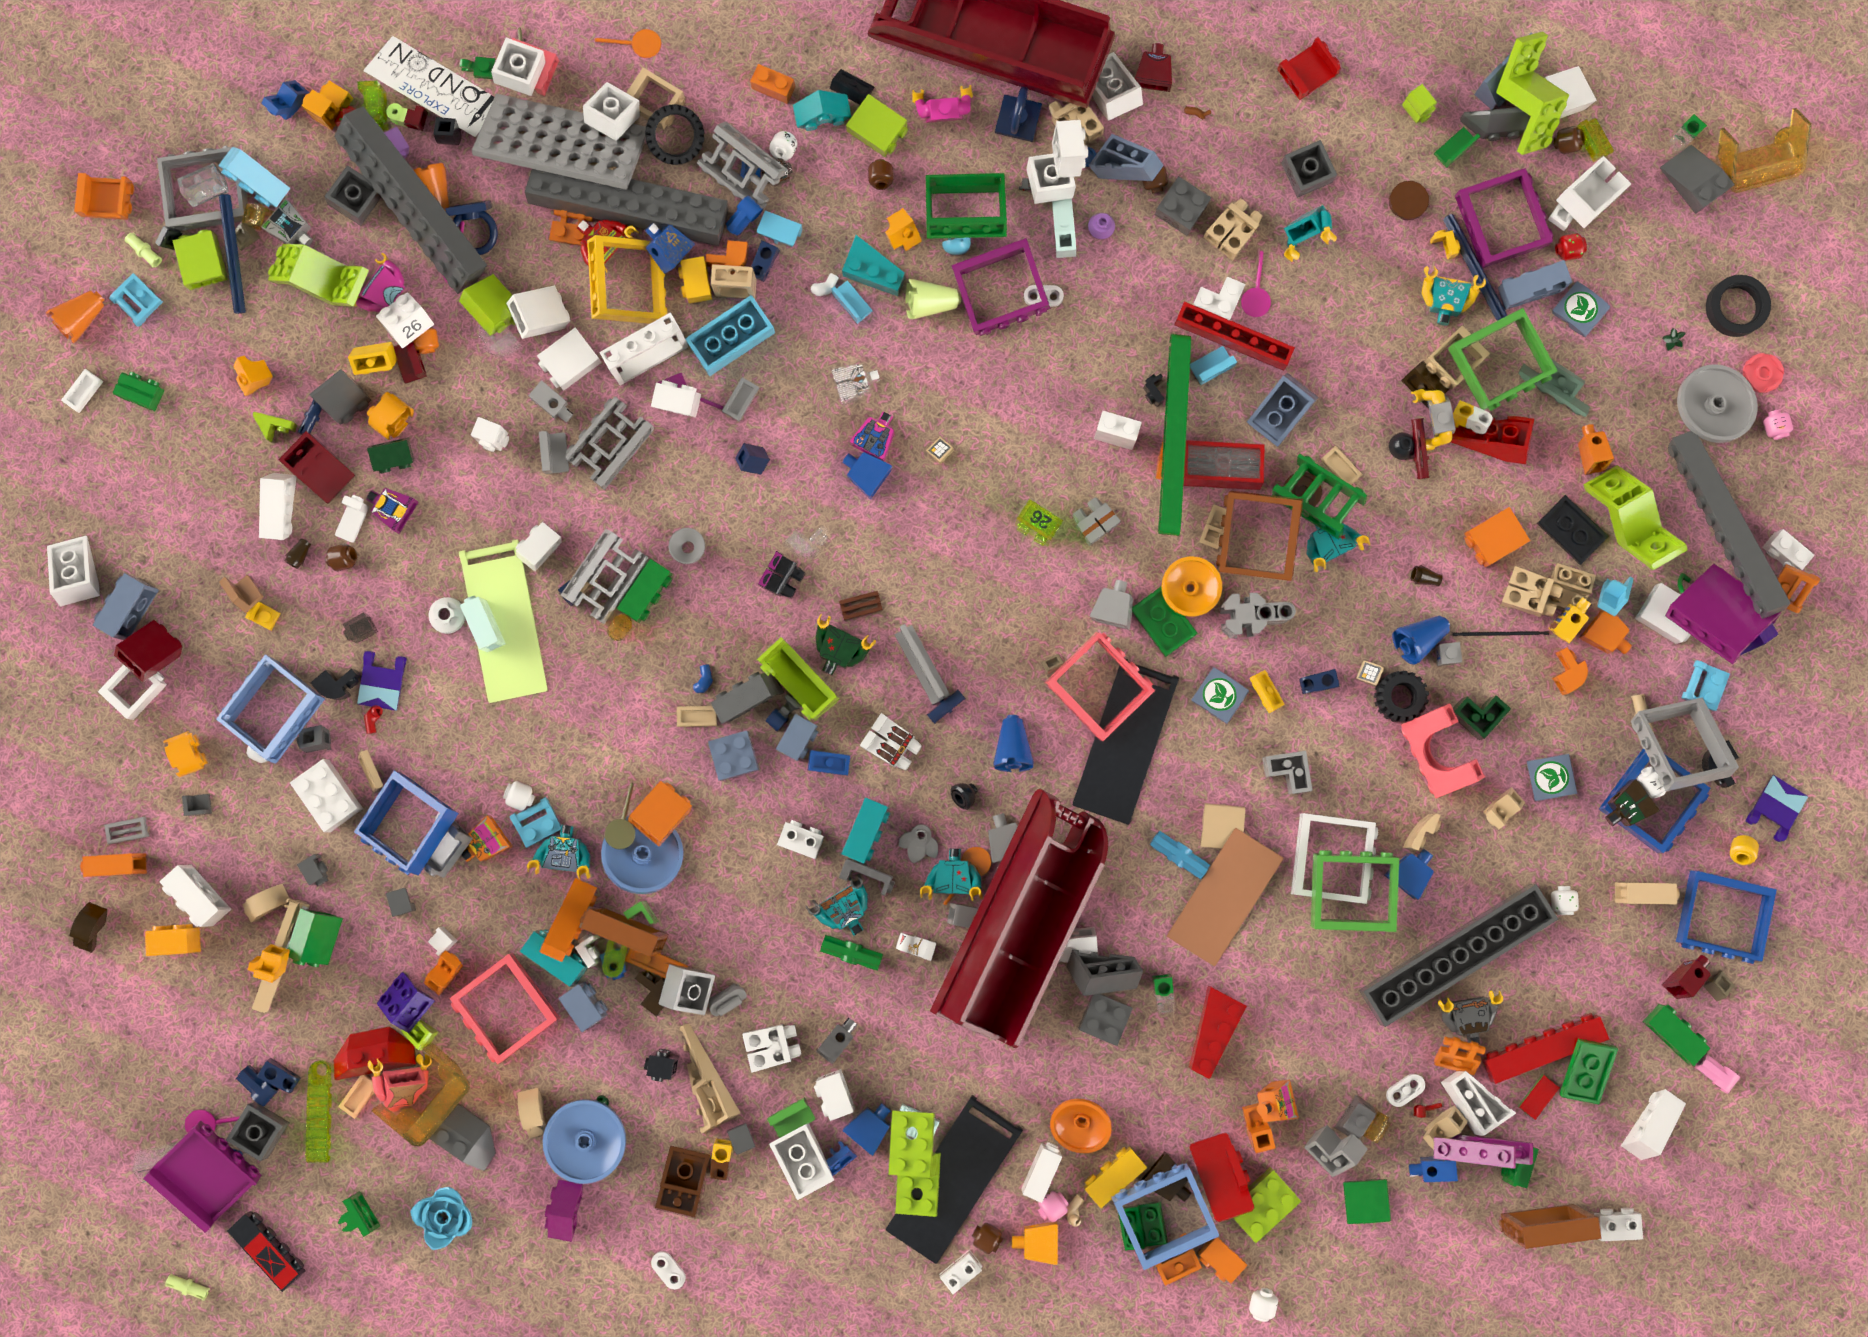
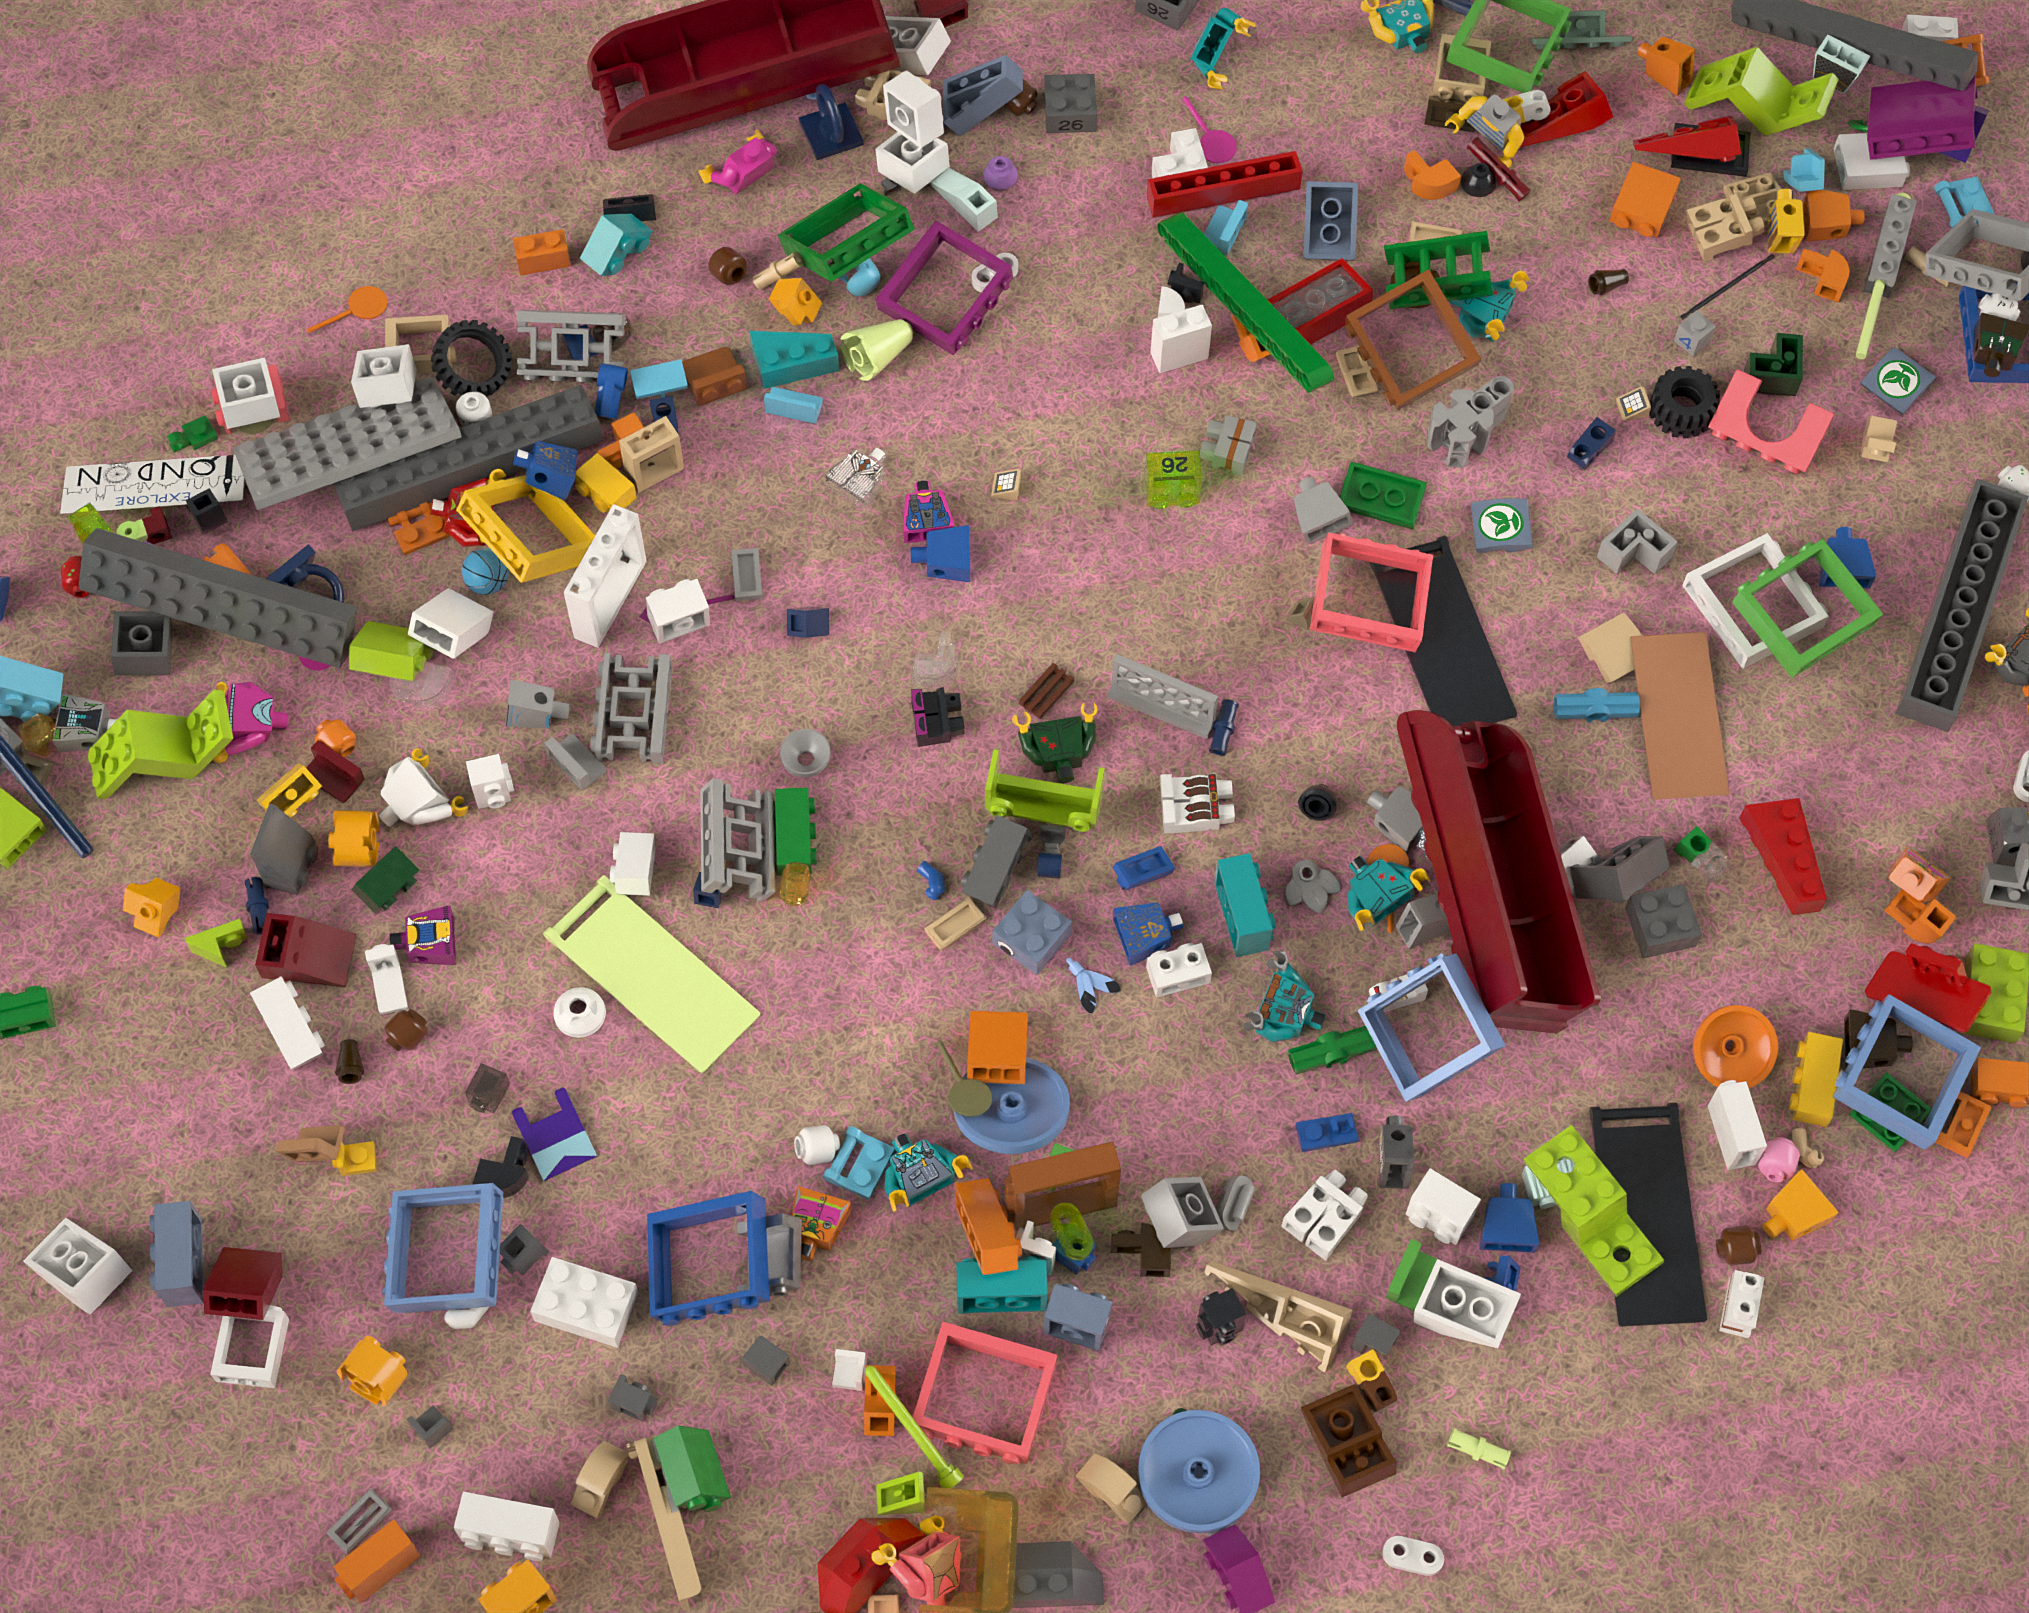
camera: 40 degrees left, 20 degrees down
(270, 964) = (666, 1520): light orange brick -> none
(327, 104) = (41, 573): light orange brick -> none
(370, 771) = (617, 1239): tan tile -> none
(371, 717) = (572, 1182): red arm -> none
(404, 319) = (299, 726): white brick -> none
(404, 1003) = (858, 1470): dark purple bracket -> none
(444, 409) = (415, 795): none -> white torso
(451, 1039) = (947, 1474): none -> lime piece
(482, 624) = (634, 980): light aqua brick -> none
(568, 359) = (520, 651): white brick -> none
(579, 289) = (484, 572): none -> dark azure piece
(653, 170) = (473, 408): none -> white head
(655, 964) = (1110, 1220): orange tile -> none
(730, 335) = (687, 514): medium azure brick -> none
(748, 806) = (1087, 980): none -> light blue piece
(750, 1240) = (1478, 1448): none -> yellowish green pin
(783, 145) = (600, 298): white head -> none
(797, 738) = (1088, 865): sand blue brick -> none
(800, 801) = (1144, 930): none -> blue torso
(811, 998) = (1326, 1132): none -> blue plate
(817, 247) = (714, 375): none -> dark orange bracket
(824, 288) = (753, 409): white arm -> none
(850, 865) = (1293, 941): flat silver panel -> none
(877, 126) = (687, 224): lime brick -> none
(882, 988) = (1390, 1046): none -> medium blue window
(907, 201) = (777, 270): none -> tan pin
(1013, 746) = (1332, 716): blue cone -> none
(1132, 400) = (1170, 302): none -> white brick
(1197, 112) = (1011, 17): dark orange piece -> none
(1201, 576) = (1386, 425): light orange dish -> none
(1236, 222) = (1141, 85): tan hips -> none
(1266, 690) = (1535, 486): yellow plate -> none
(1369, 427) = (1432, 181): none -> orange brick
(1420, 637) = (1653, 338): blue cone -> none
(1425, 826) = (1820, 512): tan slope -> none
(1568, 524) = (1711, 140): none -> red wedge
(1616, 691) = (1886, 260): none -> light grey piece
(1702, 535) = (1840, 60): none -> light aqua torso

